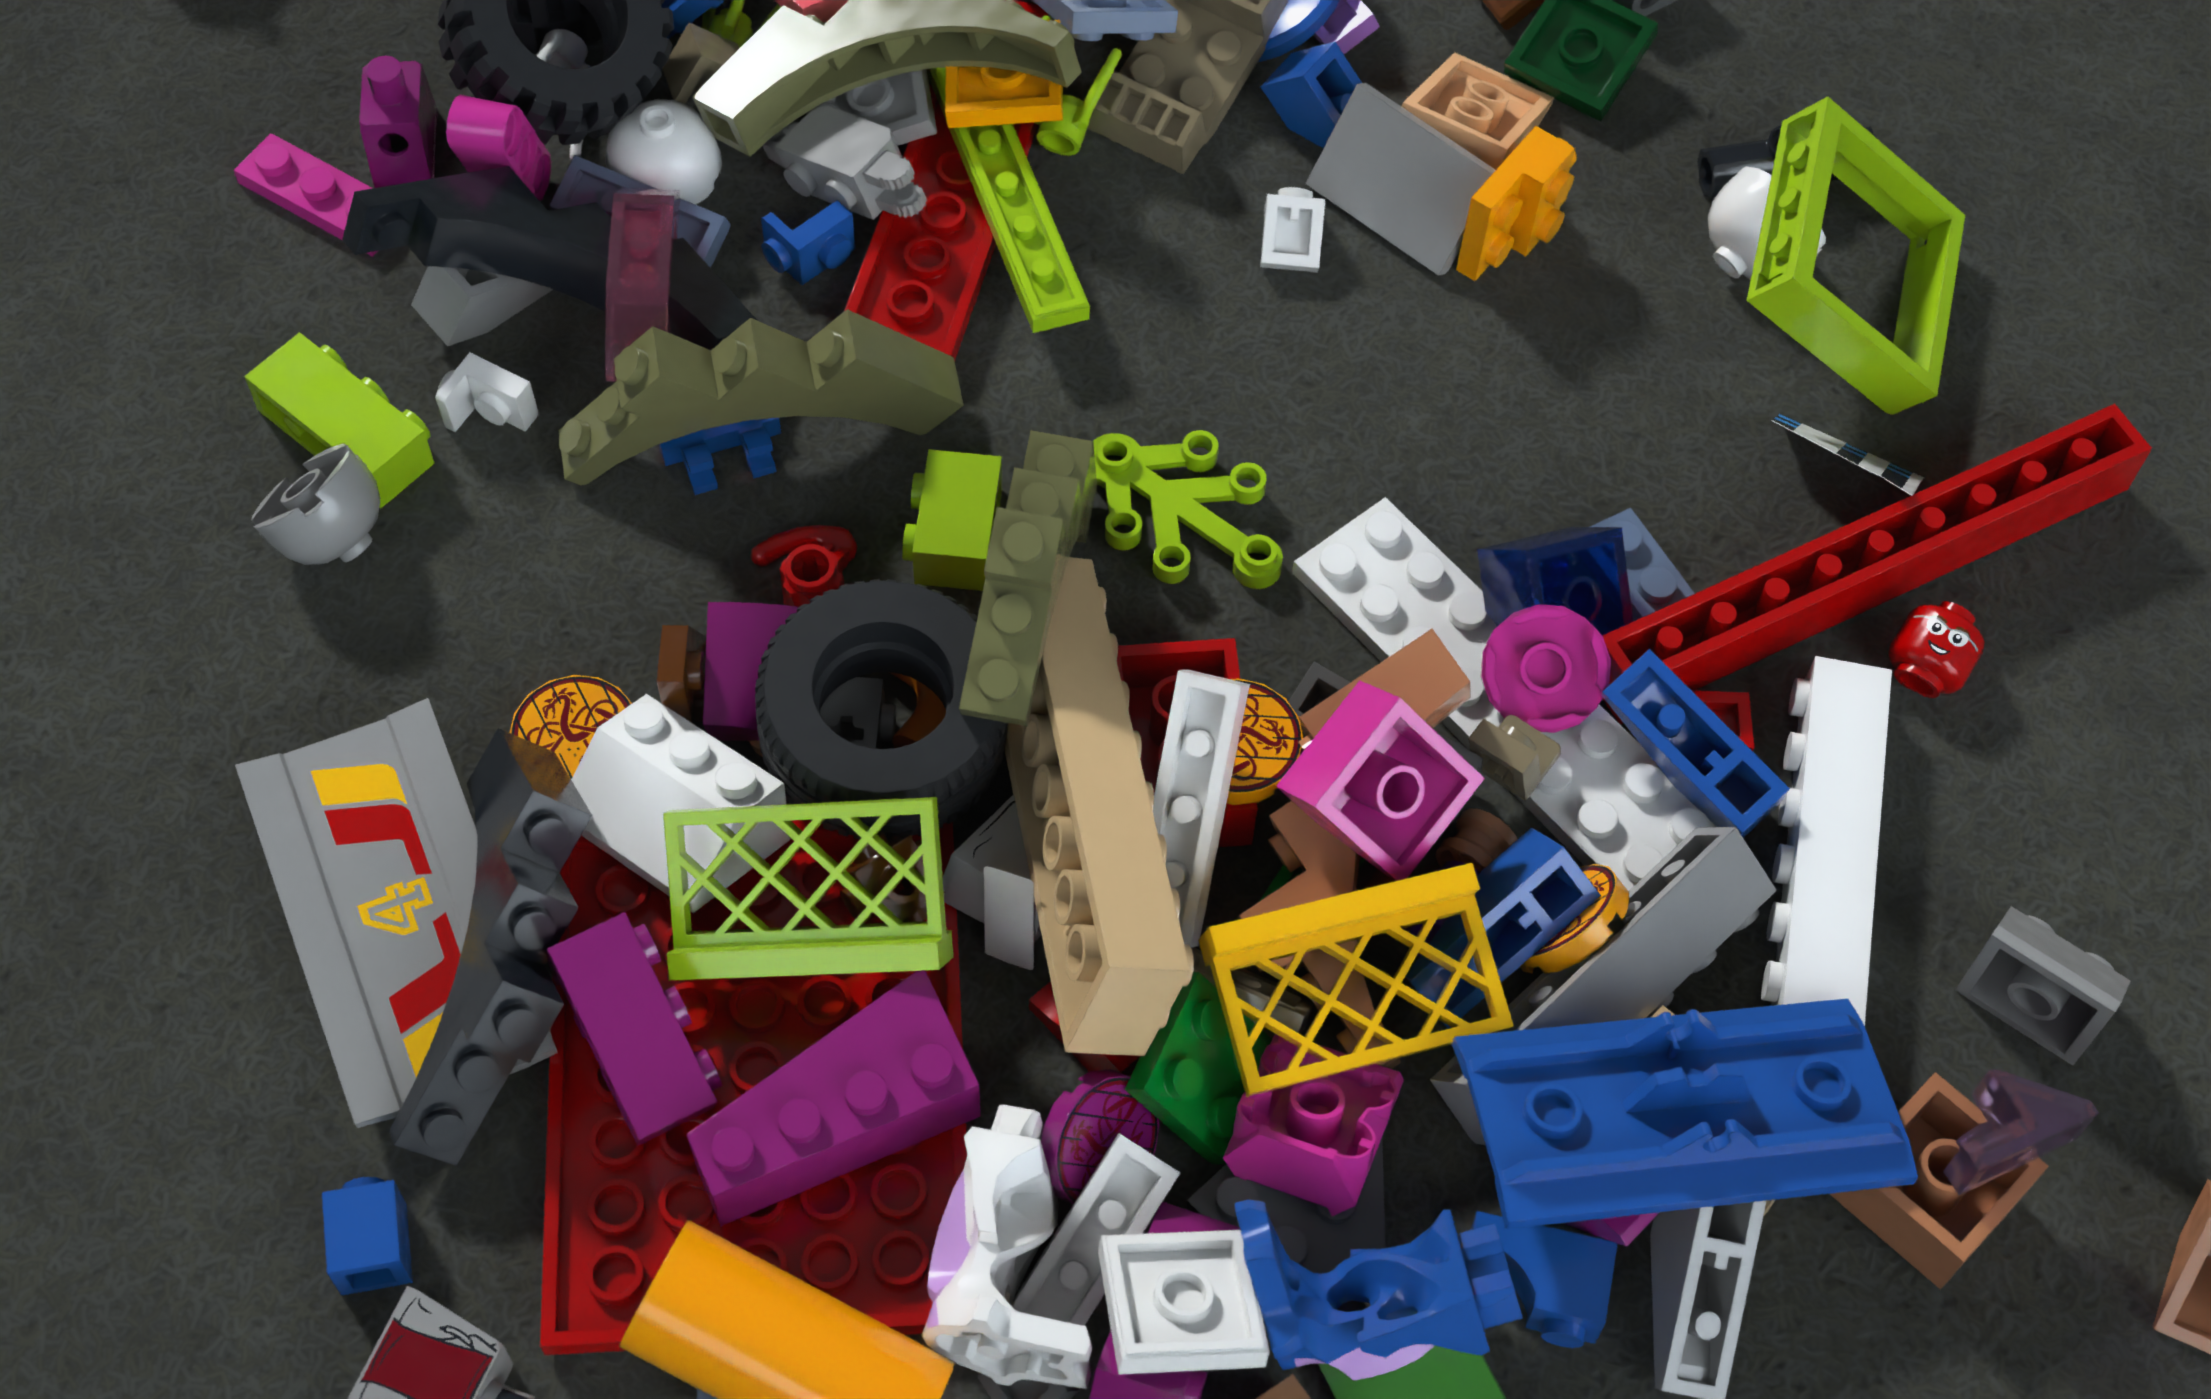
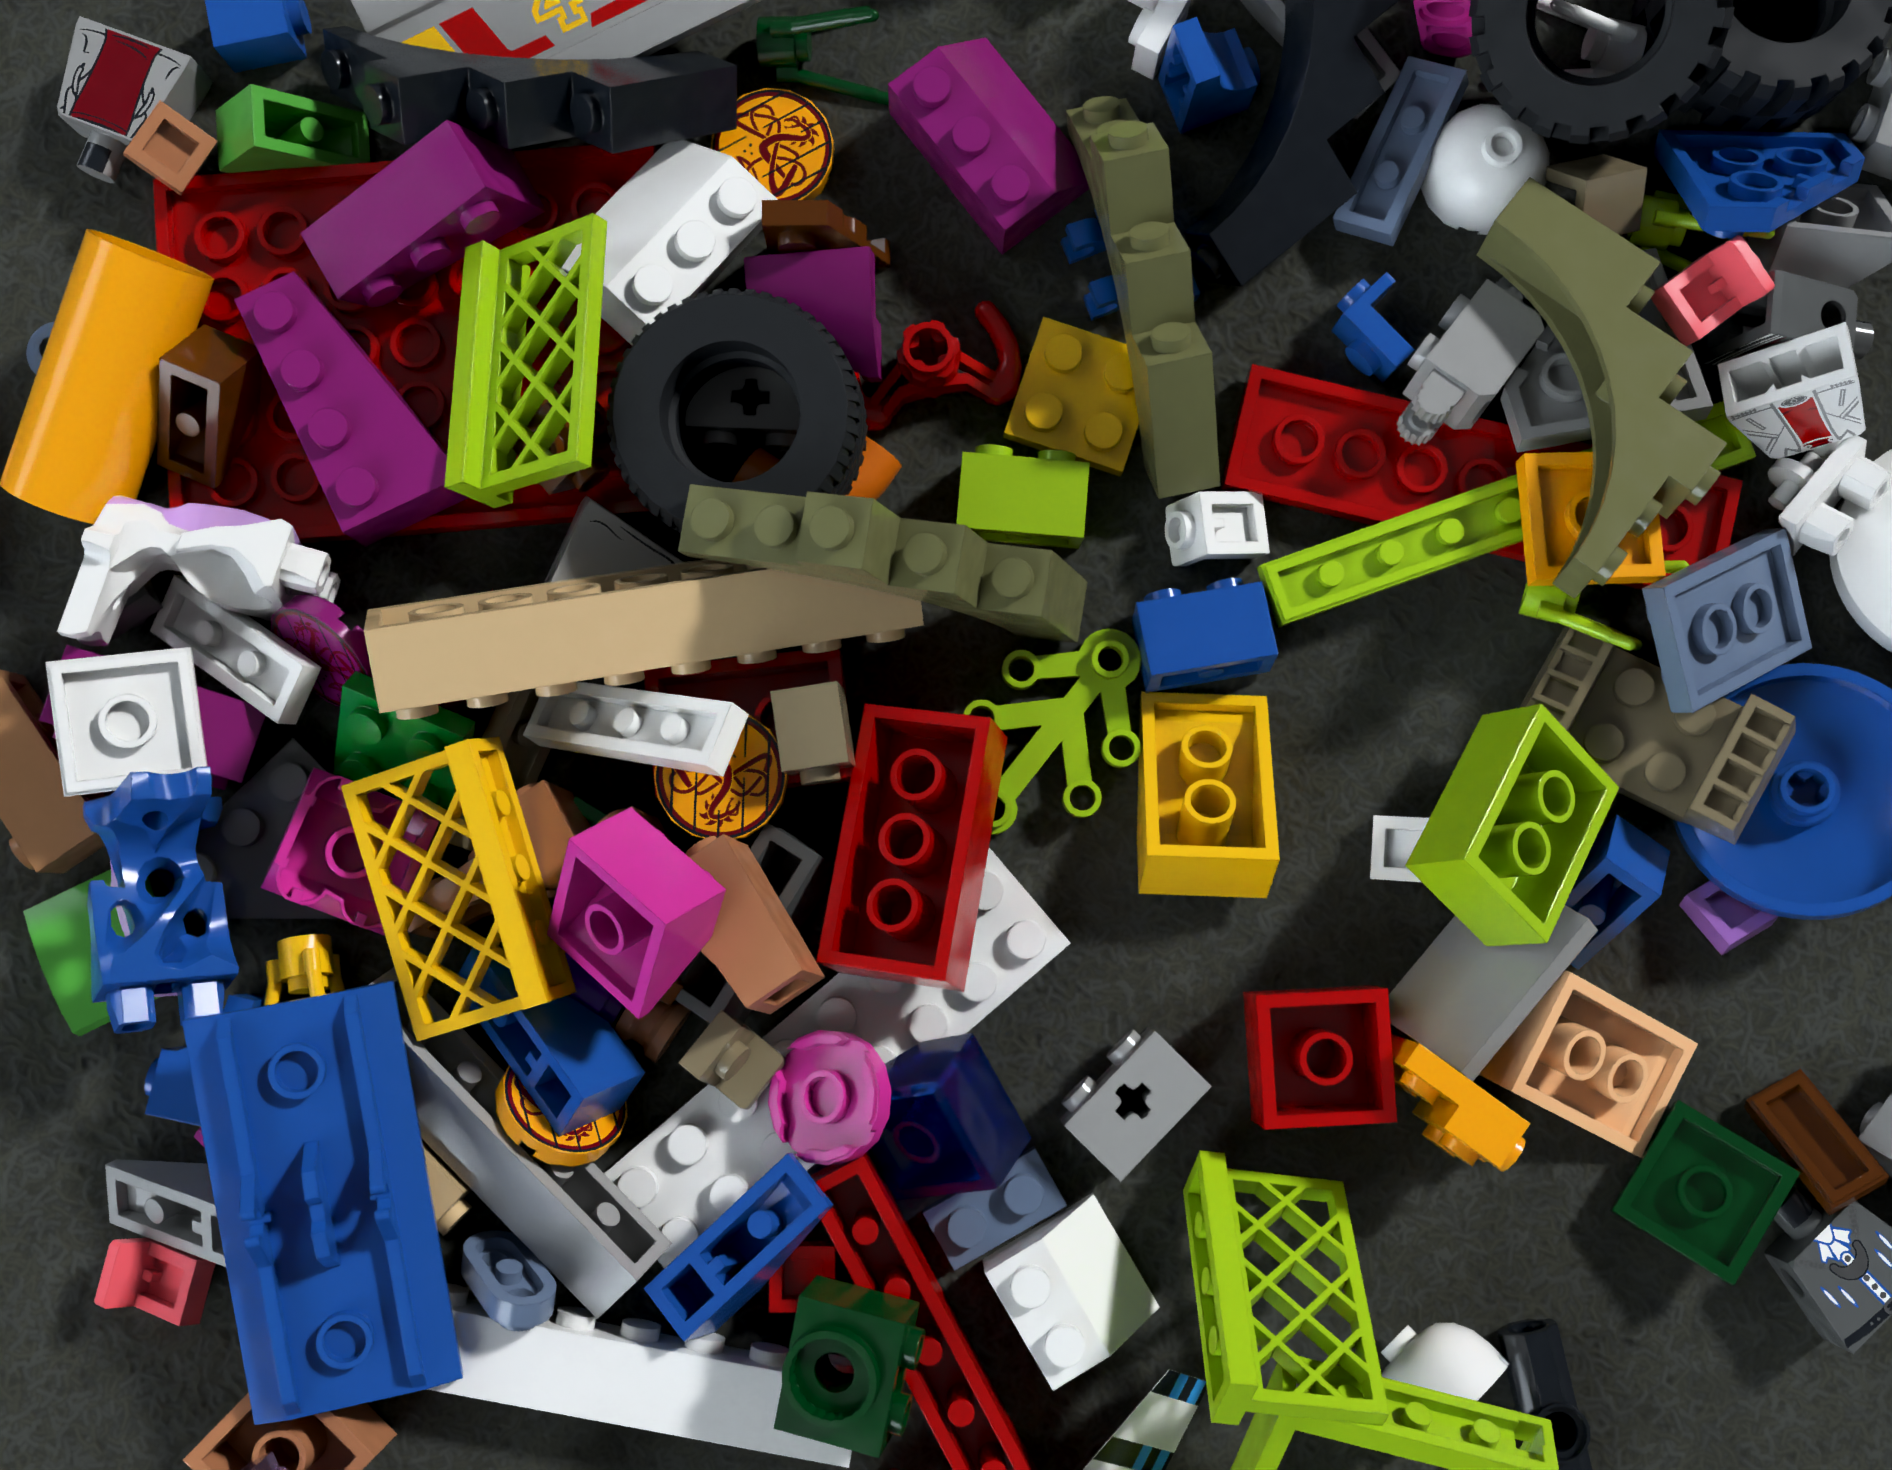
camera: 85 degrees right, 25 degrees up
(463, 711) = (787, 42): none -> dark green plant
(506, 1204) = (285, 131): none -> bright green slope
(514, 1308) = (170, 147): none -> nougat tile
(555, 356) = (1206, 75): none -> blue arch
(595, 542) = (987, 139): none -> magenta slope
(638, 266) = (1292, 139): clear pink slope -> none
(823, 1250) = (206, 403): none -> reddish brown slope
(853, 477) = (1076, 397): none -> yellow plate
(991, 373) = (1216, 527): none -> white bracket
(1009, 917) = (553, 558): white sticker -> none
(1093, 375) = (1204, 634): none -> blue brick
(1195, 640) = (813, 732): none -> dark tan brick
(1247, 382) = (1205, 796): none -> yellow slope
(1276, 141) = (1513, 827): none -> lime brick
(1300, 587) = (913, 846): none -> red brick
(1437, 1174) = (306, 967): none -> yellow plant
(1482, 301) = (1320, 1057): none -> red brick
(1531, 449) = (1167, 1095): none -> light grey brick
(1707, 337) = (1225, 1304): none -> lime fence
(1714, 509) = (1071, 1290): none -> white slope
(1748, 961) = (508, 1280): none -> sand blue plate
(1780, 1330) = (155, 1280): none -> coral bracket
(1824, 620) = (880, 1342): none -> dark green brick

